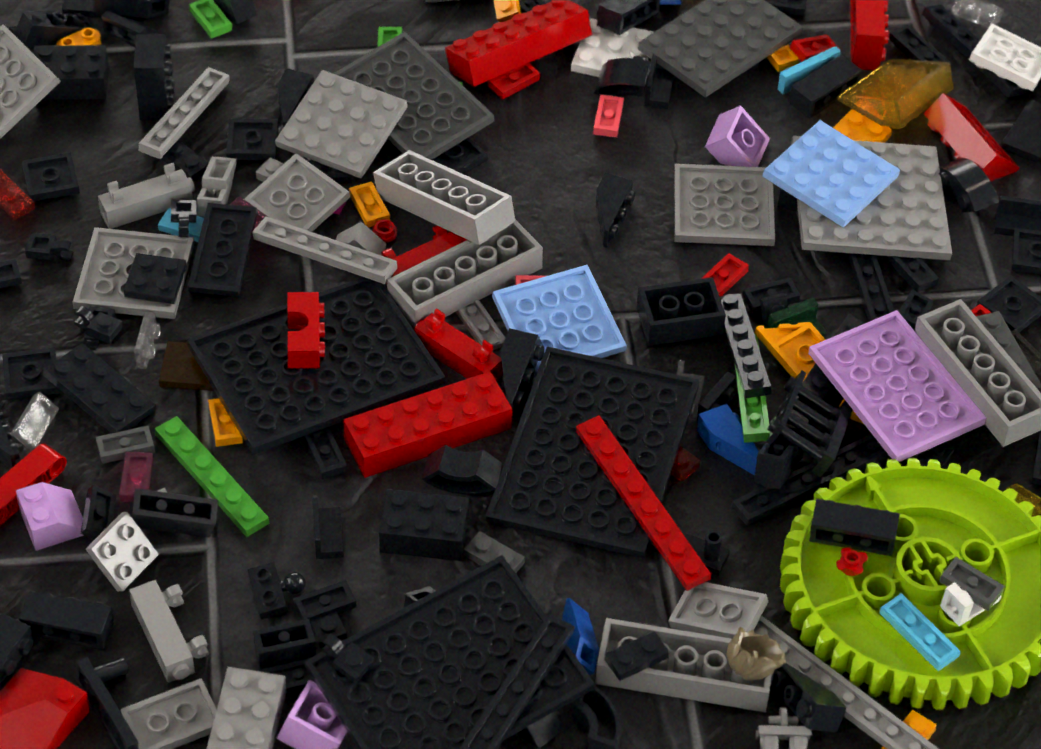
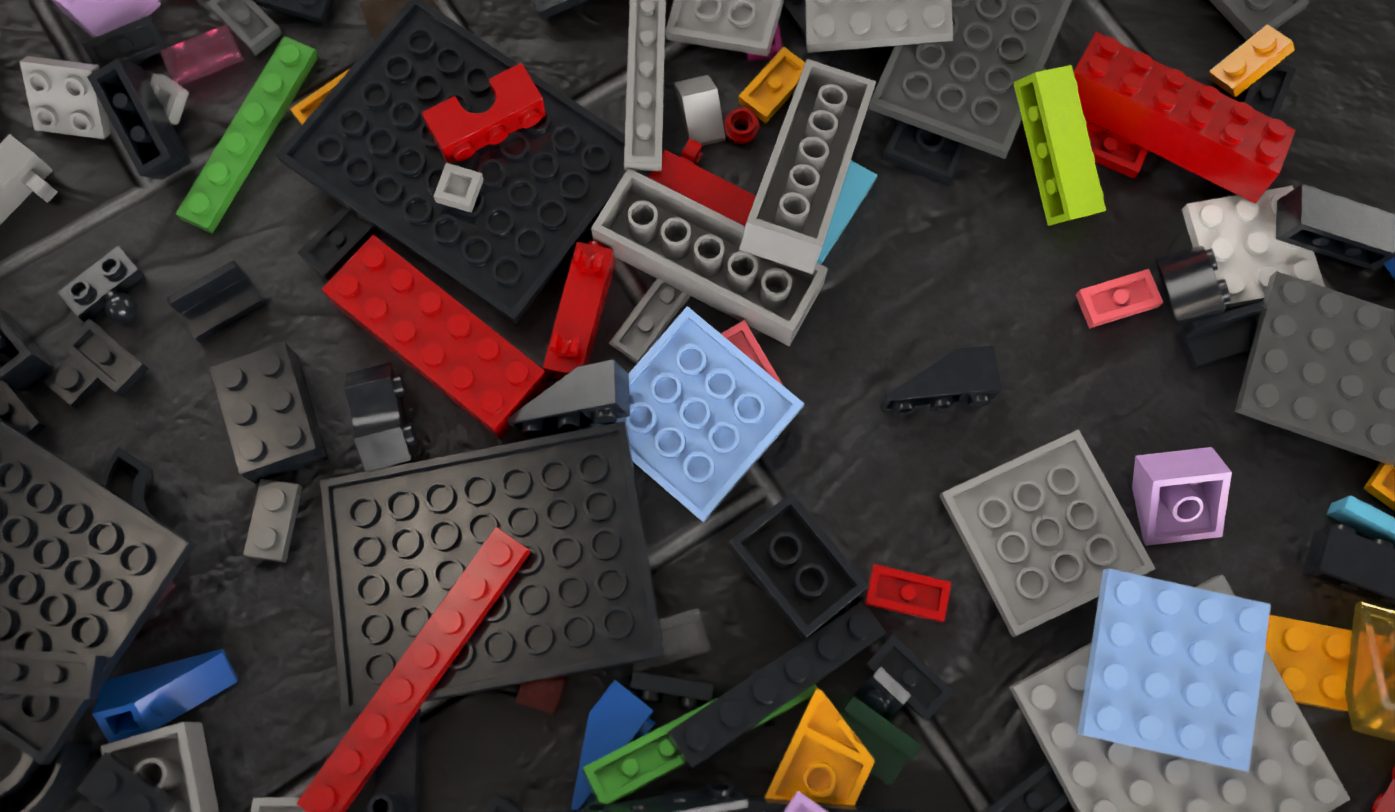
camera: 65 degrees right, 25 degrees up
(344, 362) = (458, 187): none -> light grey plate
(505, 92) = (1059, 145): none -> lime brick

